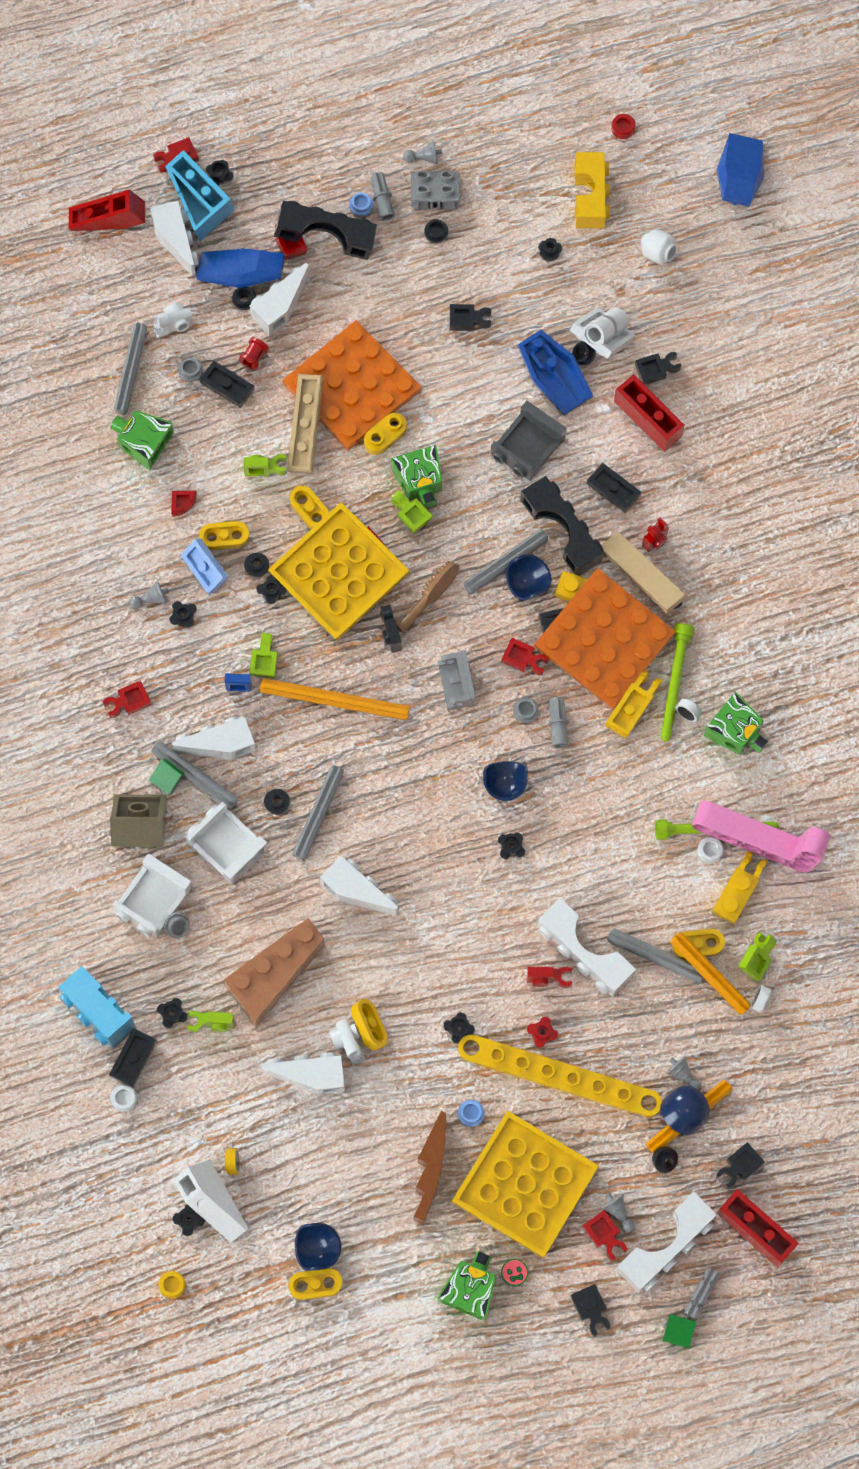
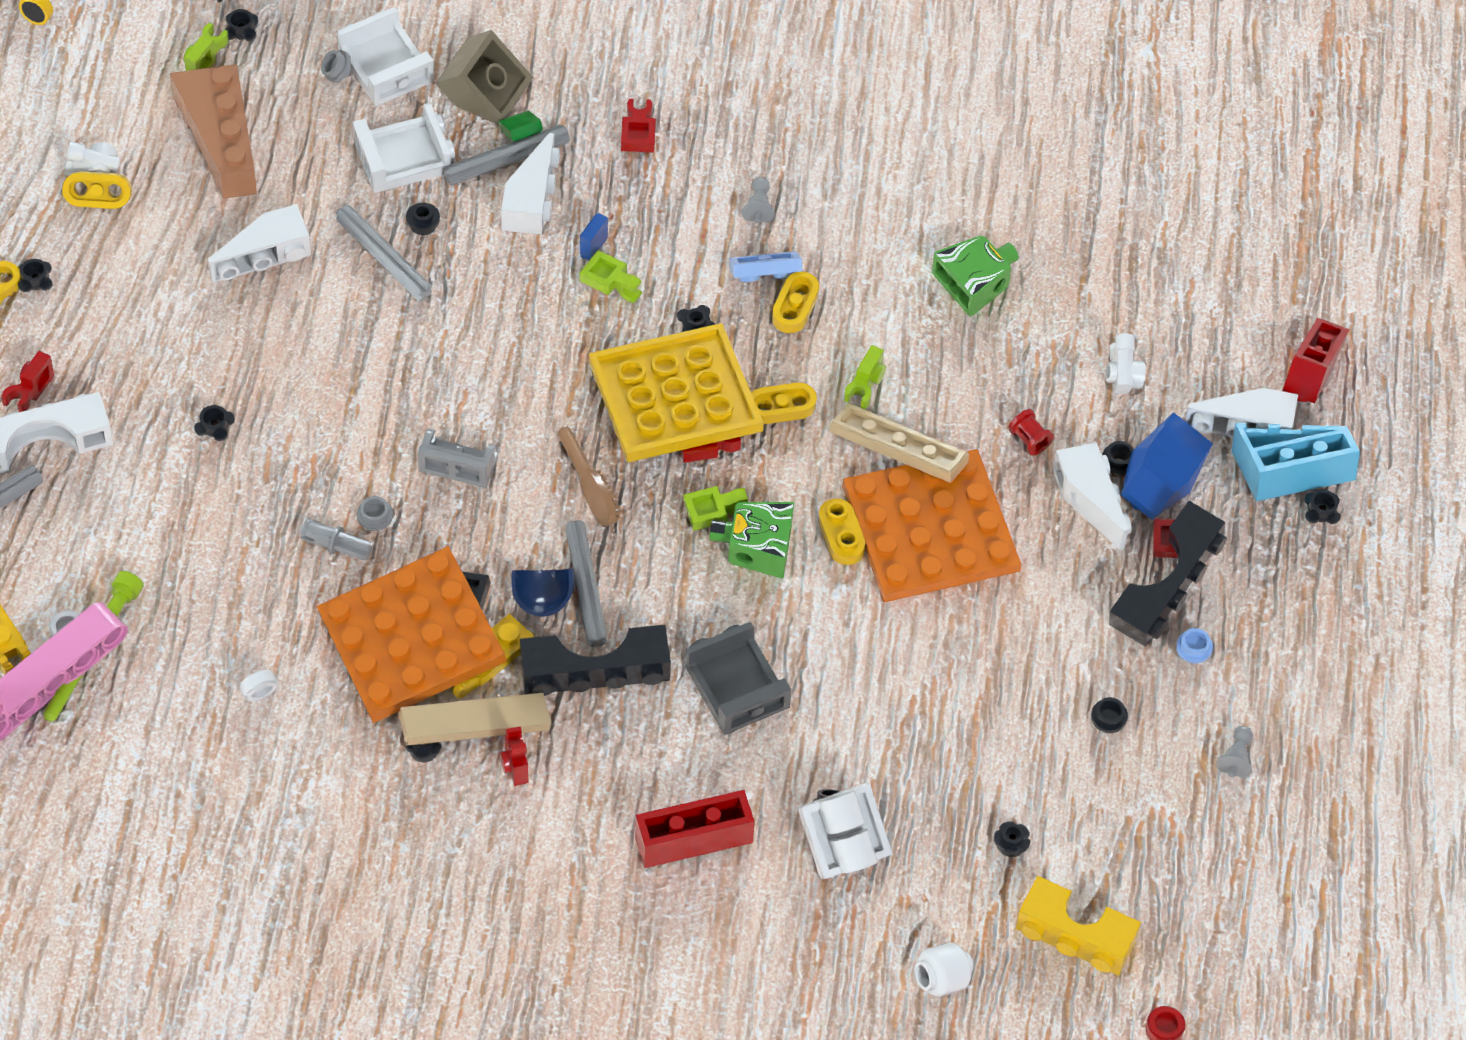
camera: 115 degrees right, 15 degrees down
(130, 368) = (1079, 300): light grey axle -> none
(173, 150) = (1372, 476): red plate -> none
(182, 502) = (868, 283): red tile -> none
(183, 621) = (714, 230): black plate -> none
(190, 369) = (1045, 361): light grey plate -> none
(227, 384) = (1003, 388): black plate -> none
(256, 571) = (736, 328): black plate -> none
(316, 1075) = (81, 111): white slope -> none
(334, 699) = (513, 327): light orange axle -> none
(382, 196) = (1194, 673): light grey axle -> none
(391, 633) = (559, 413): black plate -> none
(435, 187) = (1176, 740): light grey hinge -> none
(464, 317) = (957, 689): black plate -> none
(505, 779) = (299, 444): dark blue helmet -> none
(521, 655) = (450, 532): red plate -> none
(554, 372) = (823, 758): blue piece -> none
(614, 487) = (615, 747): black plate -> none
(632, 706) = (305, 629): yellow hinge -> none
(654, 368) = (762, 878): black plate -> none
(683, 635) = (364, 730): lime piece -> none
(736, 726) = (202, 728): bright green torso -> none

